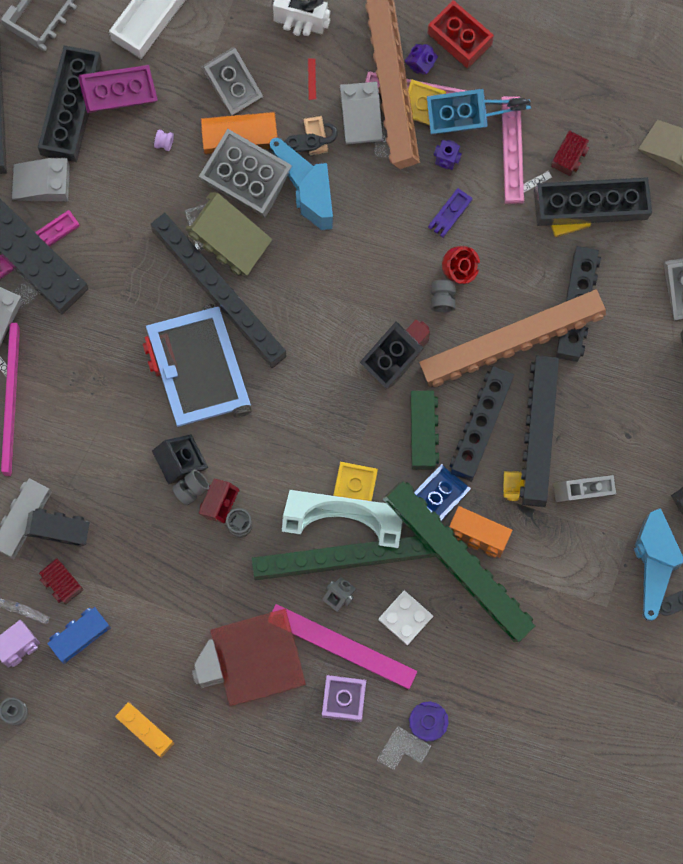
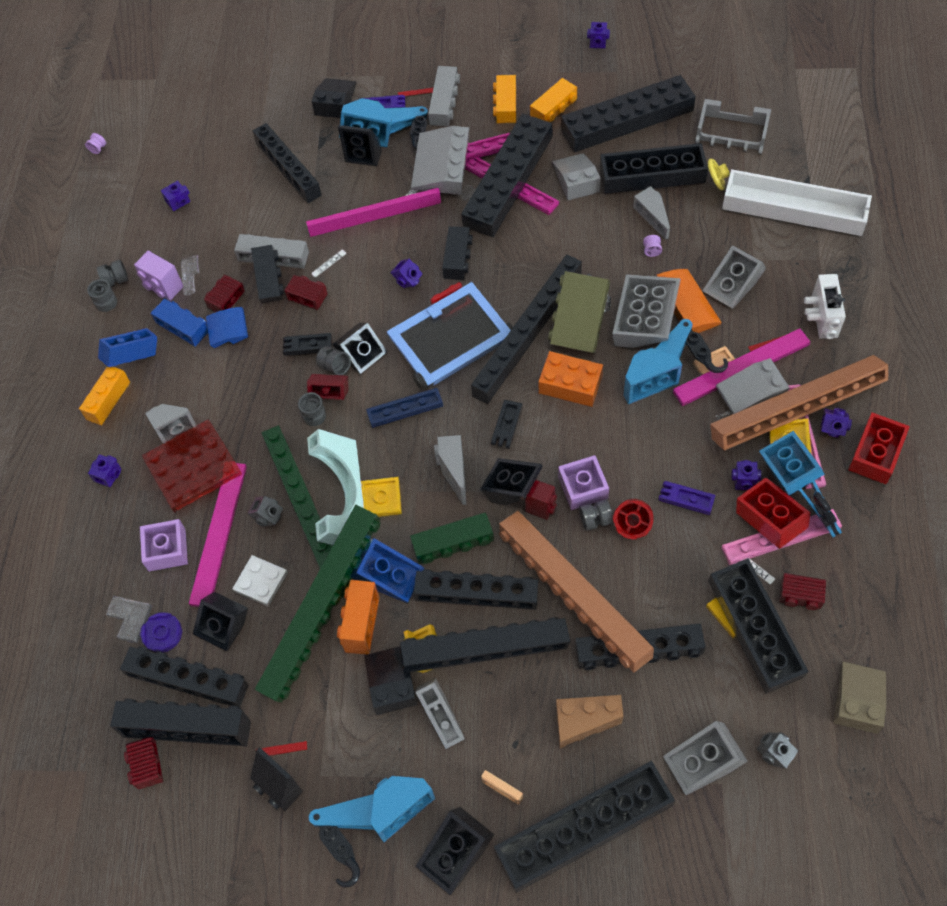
camera: 80 degrees right, 15 degrees down
(55, 465) = (327, 264): none -> white sticker
(89, 495) = (306, 291): none -> dark red brick
(98, 330) = (457, 253): none -> black brick
(102, 691) = (127, 347): none -> blue brick
(103, 44) = (718, 173): none -> light yellow piece
(103, 587) = (226, 326): none -> blue slope
(108, 387) = (406, 273): none -> dark purple brick
(117, 88) = (681, 193): magenta plate -> none
(119, 123) = (651, 208): none -> light grey slope
(155, 509) = (306, 343): none -> black hinge
(244, 746) = (104, 470): none -> dark purple brick
(266, 434) = (404, 407): none -> dark blue plate
(291, 269) = (570, 378): none -> orange brick
(318, 344) = (507, 423): none -> black hinge
(330, 112) = (775, 350): none -> dark pink tile
(352, 405) = (450, 458): none -> light grey slope
(408, 295) = (583, 482): none -> lavender brick
(437, 662) = (219, 620): none -> black slope
(495, 147) = (773, 513): none -> red brick
(514, 666) = (137, 657): none -> black brick
(531, 713) = (181, 722): none -> black brick
(541, 524) = (387, 682): none -> black slope
(553, 757) = (143, 763): none -> dark red brick
(573, 635) = (285, 748): none -> red sticker
(609, 642) = (274, 781): none -> black slope
(626, 371) = (587, 716): none -> medium nougat wedge
(667, 454) = (502, 787): none -> light nougat tile

